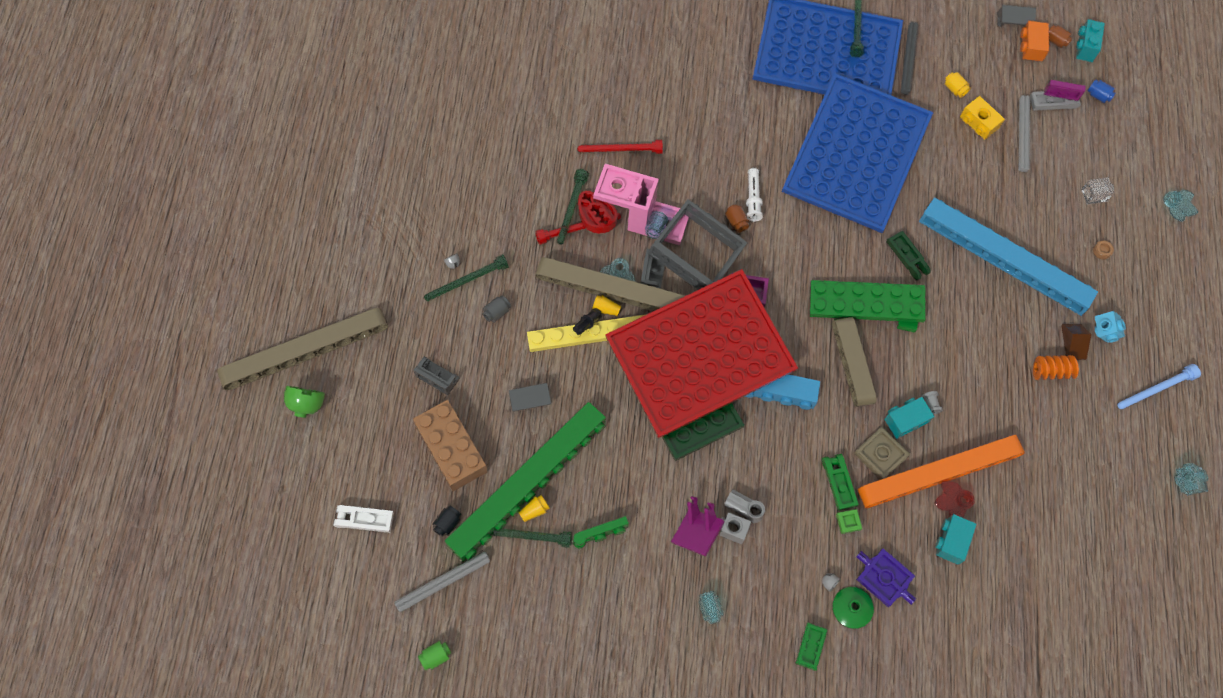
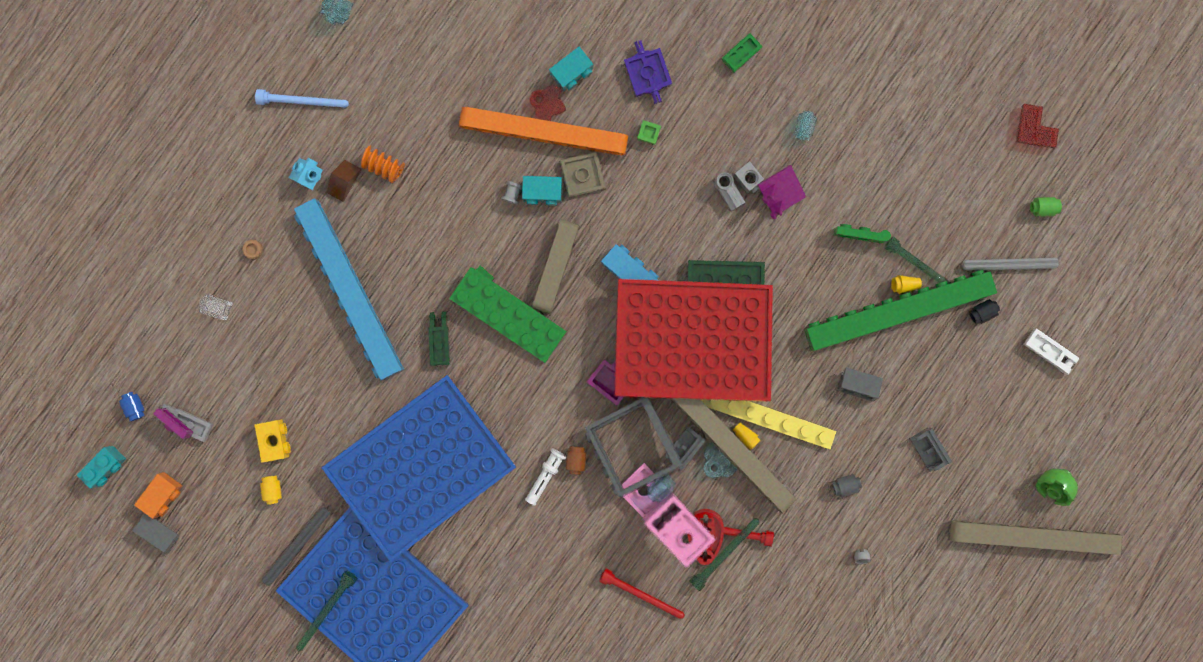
camera: 150 degrees left, 20 degrees up
(450, 445) = (950, 376): medium nougat brick -> none
(499, 263) = (820, 531): clear green piece -> none
(587, 321) = (774, 427): black axle -> none
(830, 581) = (694, 94): light grey hinge -> none
(840, 482) = (635, 168): green plate -> none
(846, 614) = (683, 74): green dish -> none
(1024, 133) = (240, 404): light grey axle -> none
(1059, 36) = (128, 489): dark orange brick -> none
(1180, 205) = (144, 251): clear light blue plate -> none

